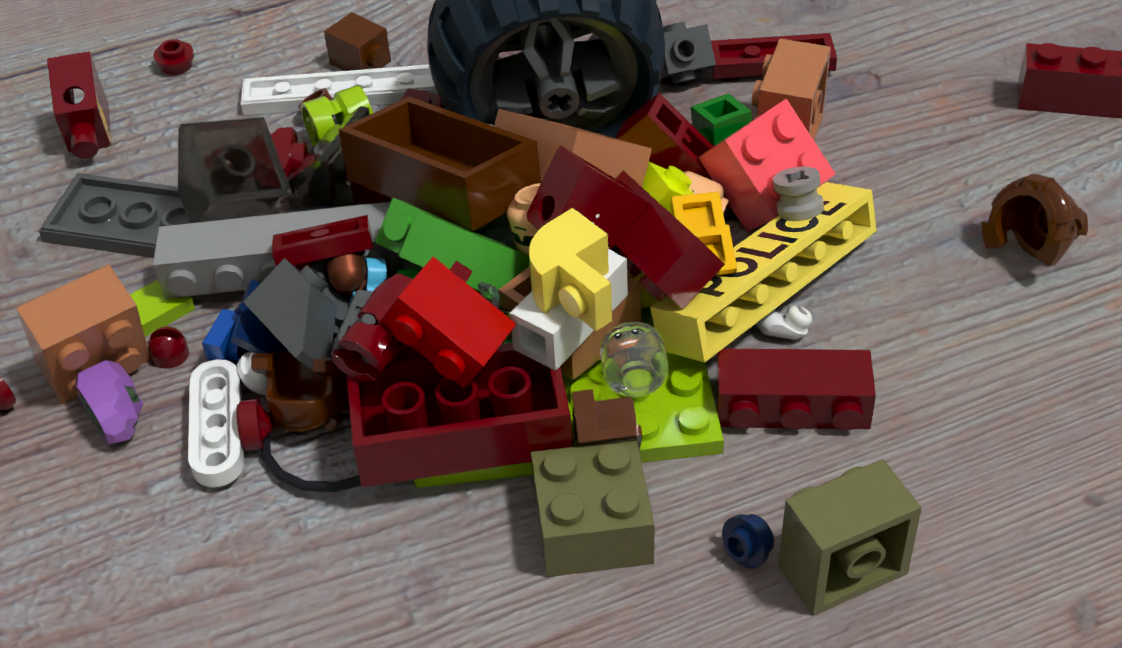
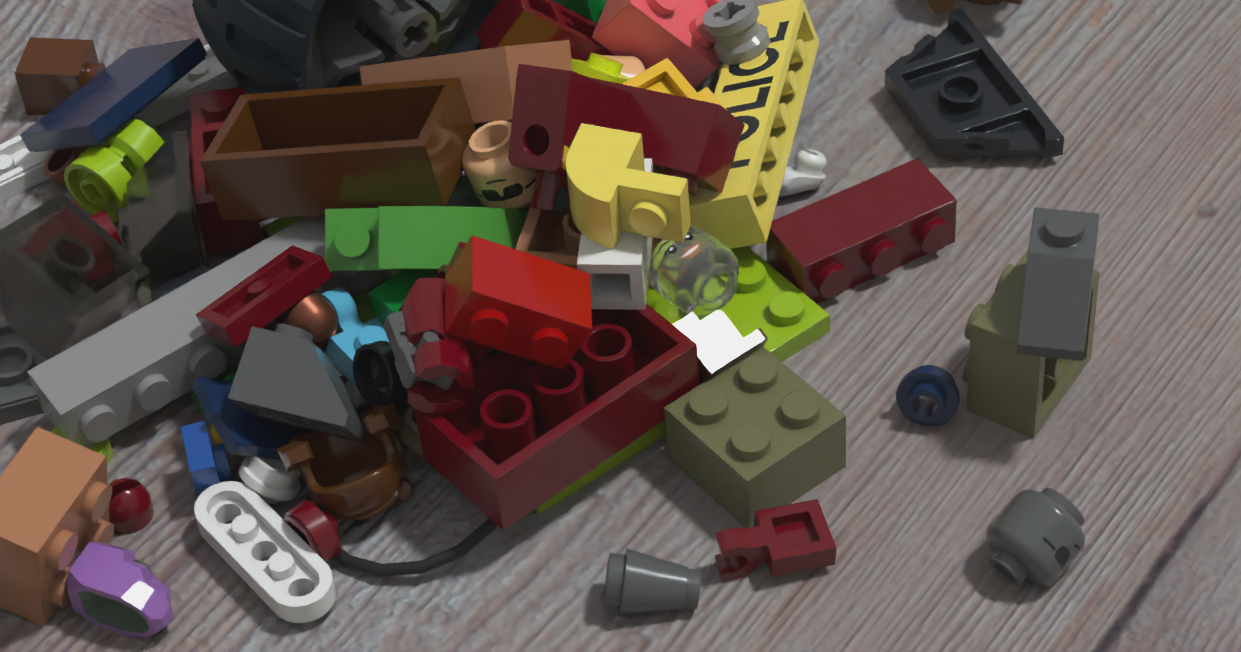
camera: 30 degrees left, 0 degrees up
(364, 70) = (114, 96): none -> dark blue tile
(433, 578) = (649, 584): none -> dark grey cone
(554, 600) = (784, 537): none -> dark red plate
(866, 500) = (1058, 284): none -> dark grey slope
(959, 322) = (968, 97): none -> black wing

